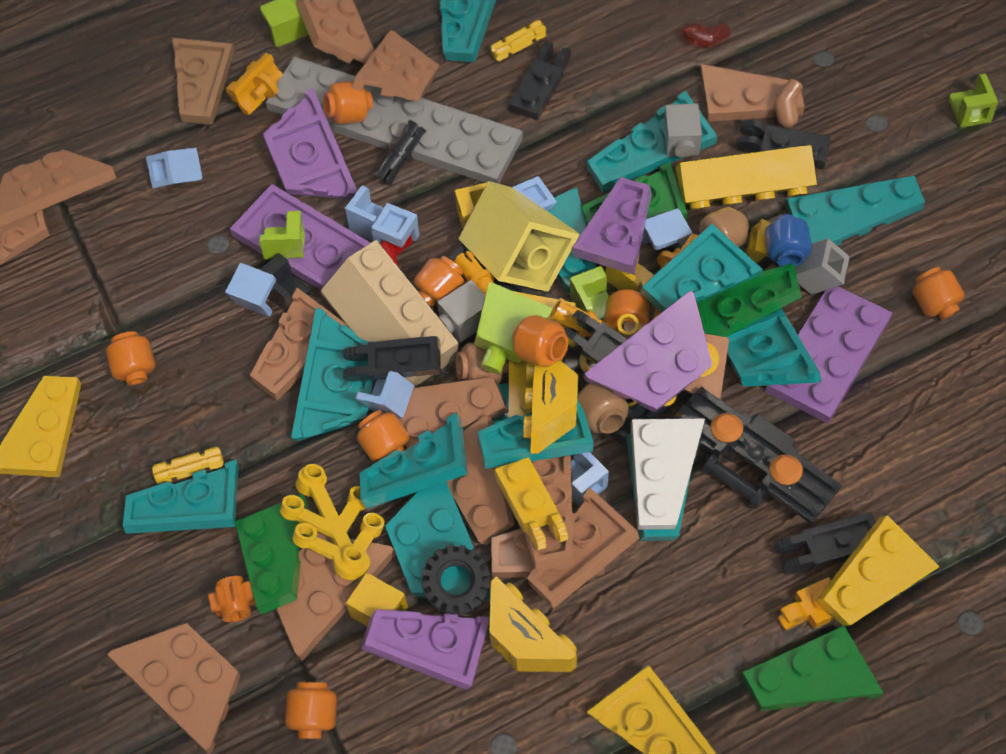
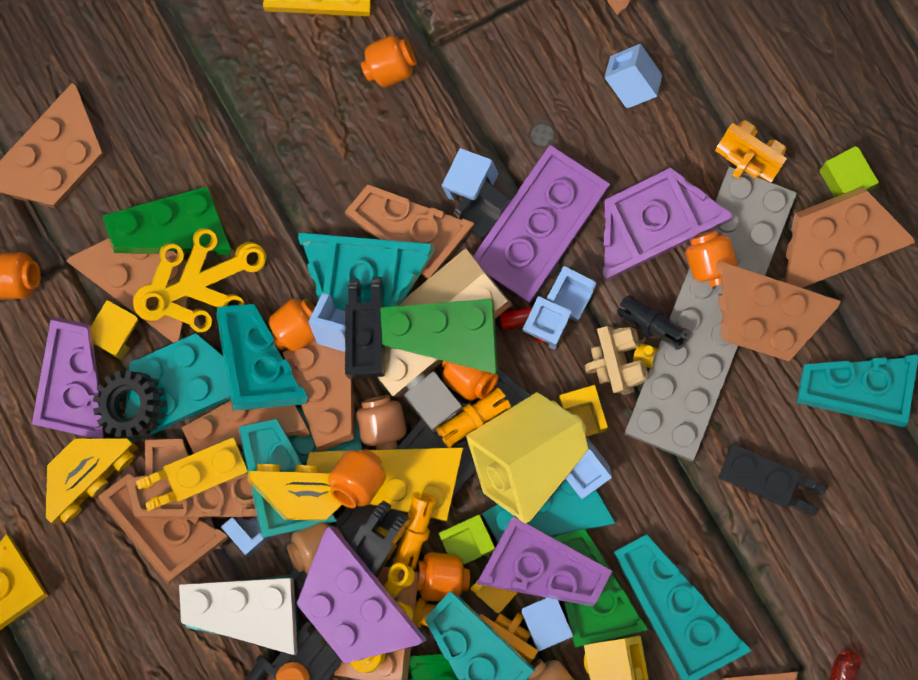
camera: 90 degrees right, 20 degrees up
(187, 465) = (271, 134): yellow axle -> none
(193, 504) = (227, 141): teal wing -> none
(201, 77) = (764, 91): medium nougat wing -> none
(232, 599) = (120, 191): orange gear -> none
(286, 240) = (529, 203): lime panel -> none
(401, 284) = (445, 331): none -> green wing
(429, 161) = (645, 353): none -> yellow hand
(446, 176) = (613, 364): none -> tan hips
(498, 319) = (401, 443): lime torso -> none
(517, 40) = (831, 452): yellow axle -> none
(682, 130) = (678, 644): light grey brick -> none

